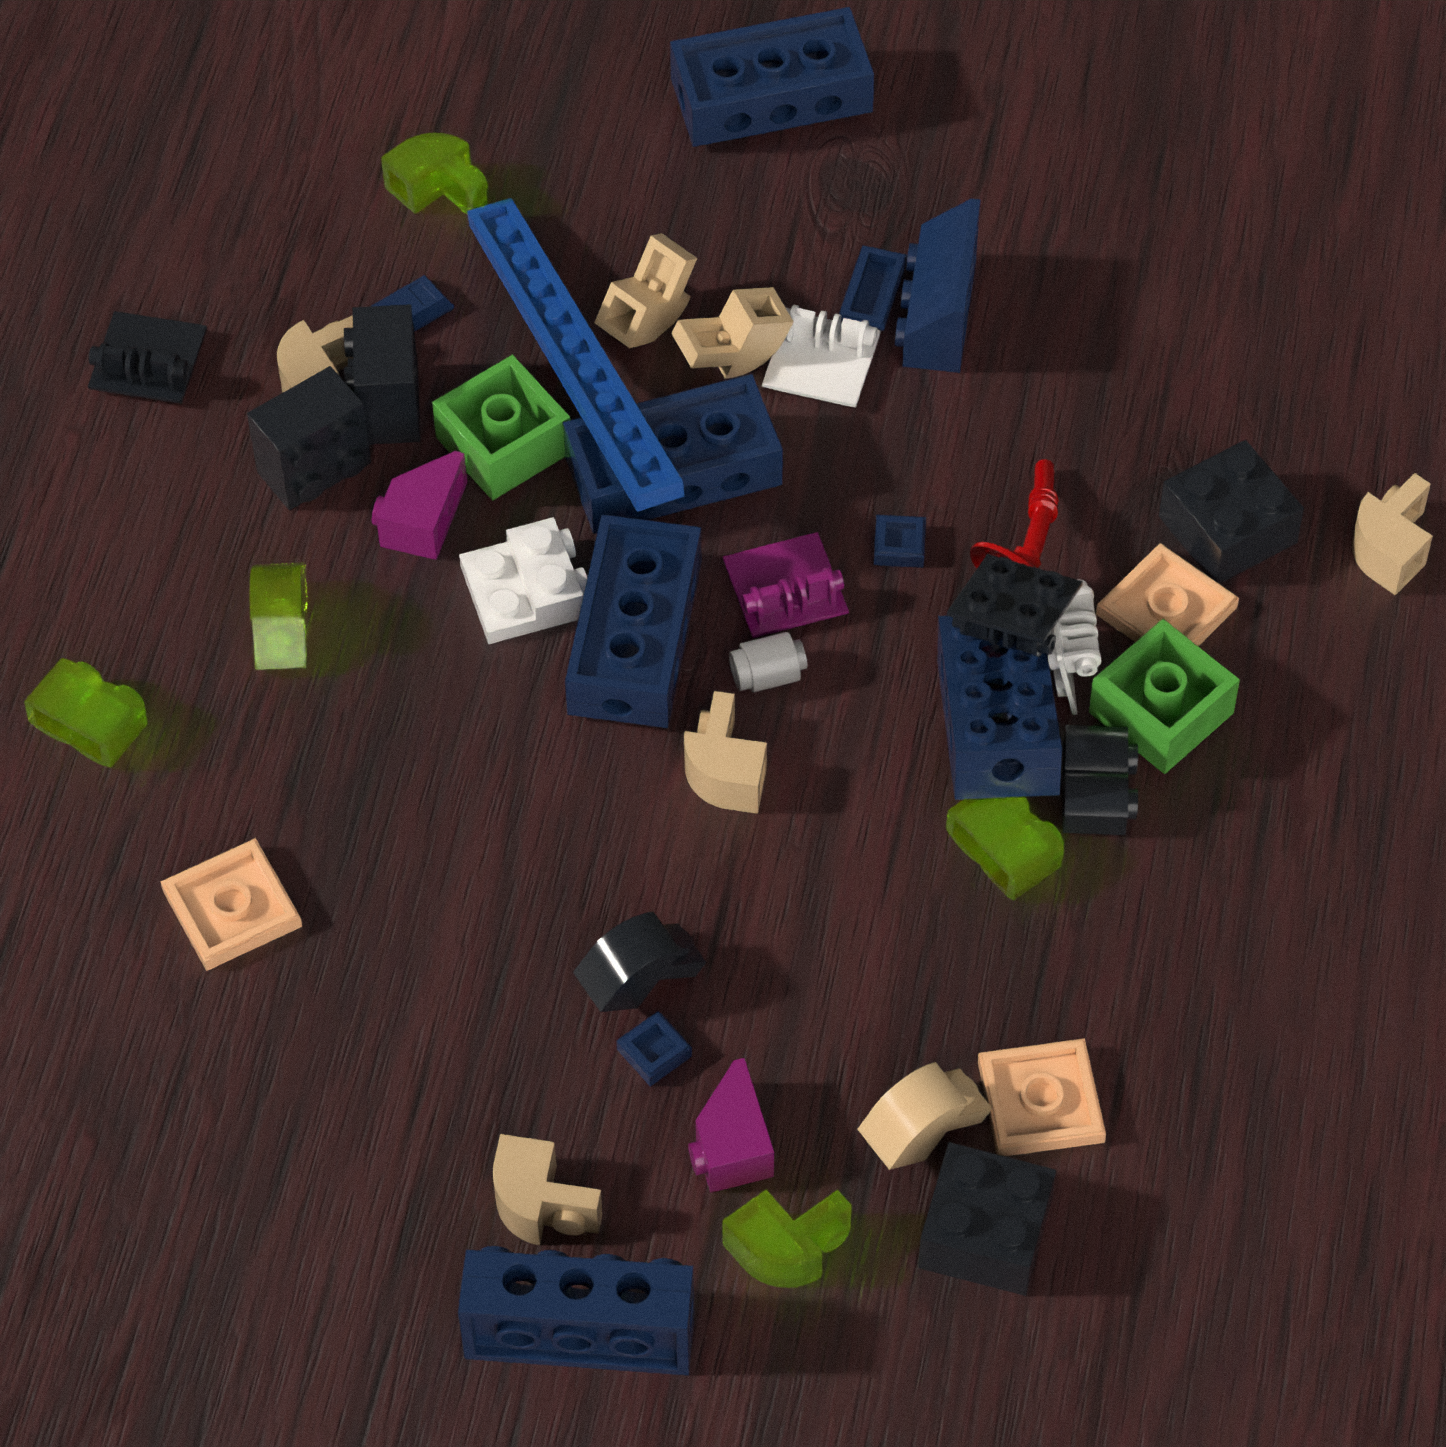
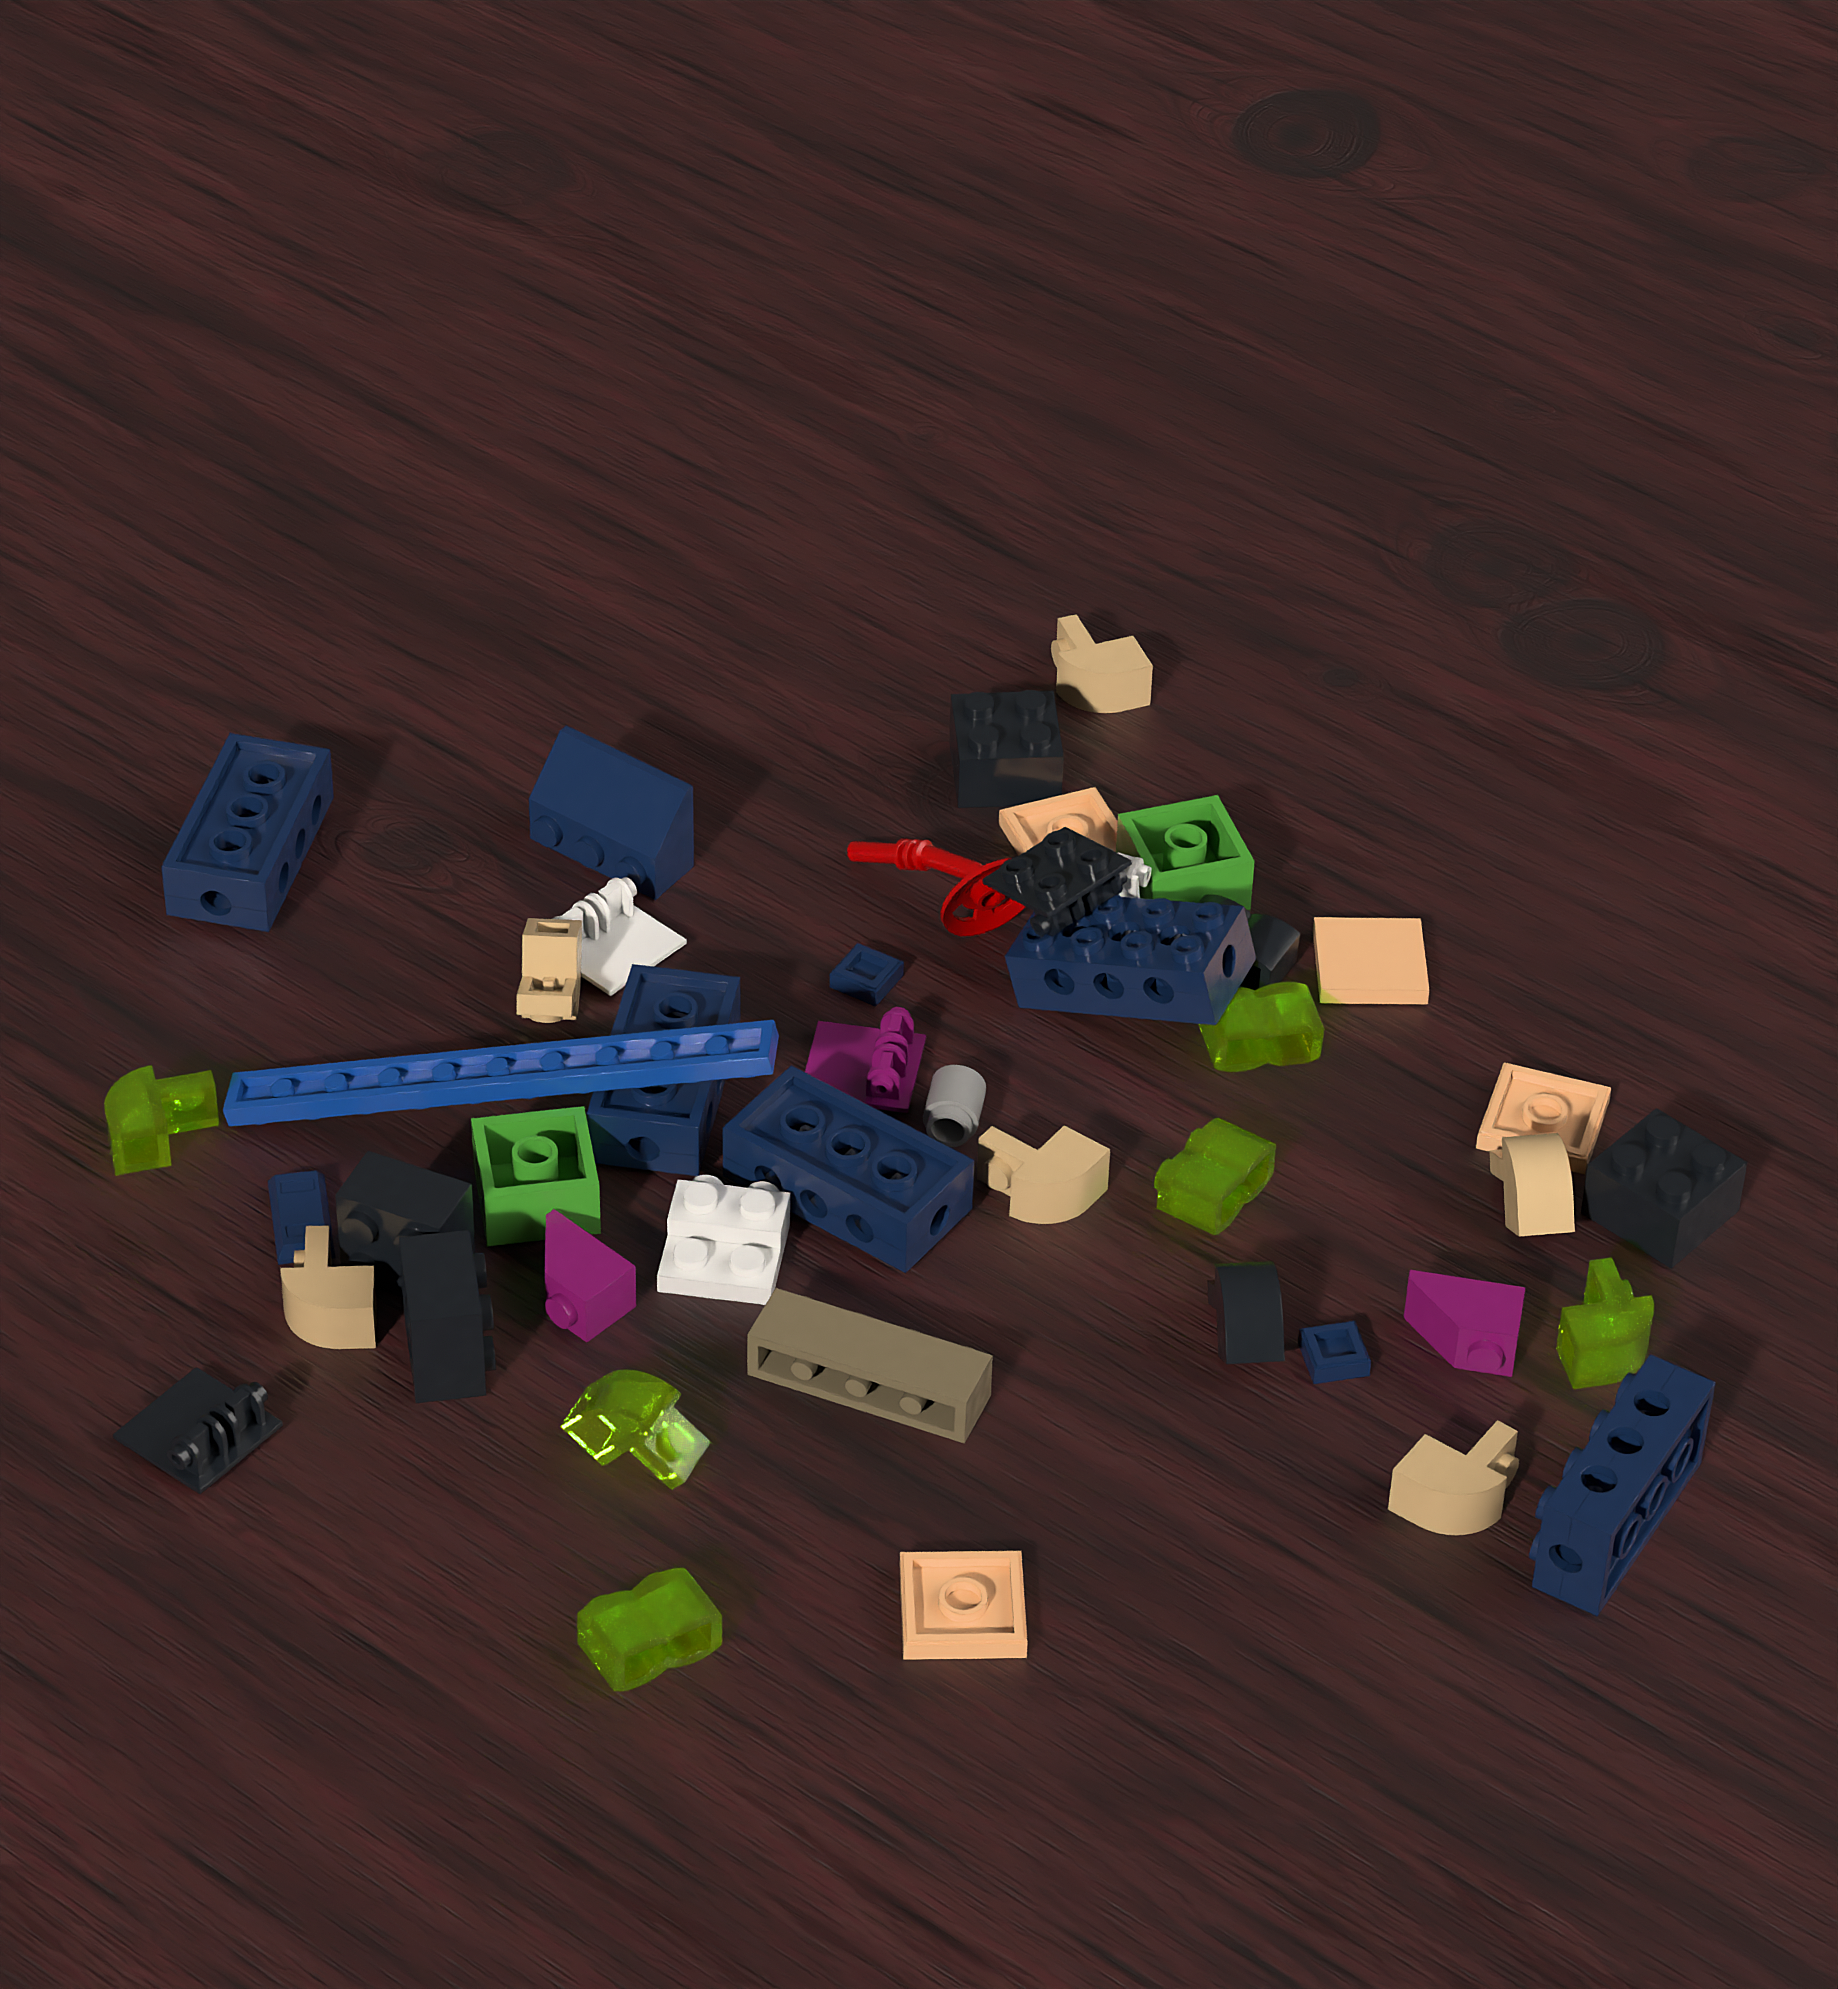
camera: 65 degrees left, 15 degrees down
(438, 732) = (869, 1365): none -> dark tan brick
(652, 300) = (445, 1003): tan brick -> none
(797, 878) = (1214, 1175): none -> clear neon green brick
(873, 286) = (550, 874): dark blue tile -> none
(1157, 889) = (1370, 960): none -> light nougat tile

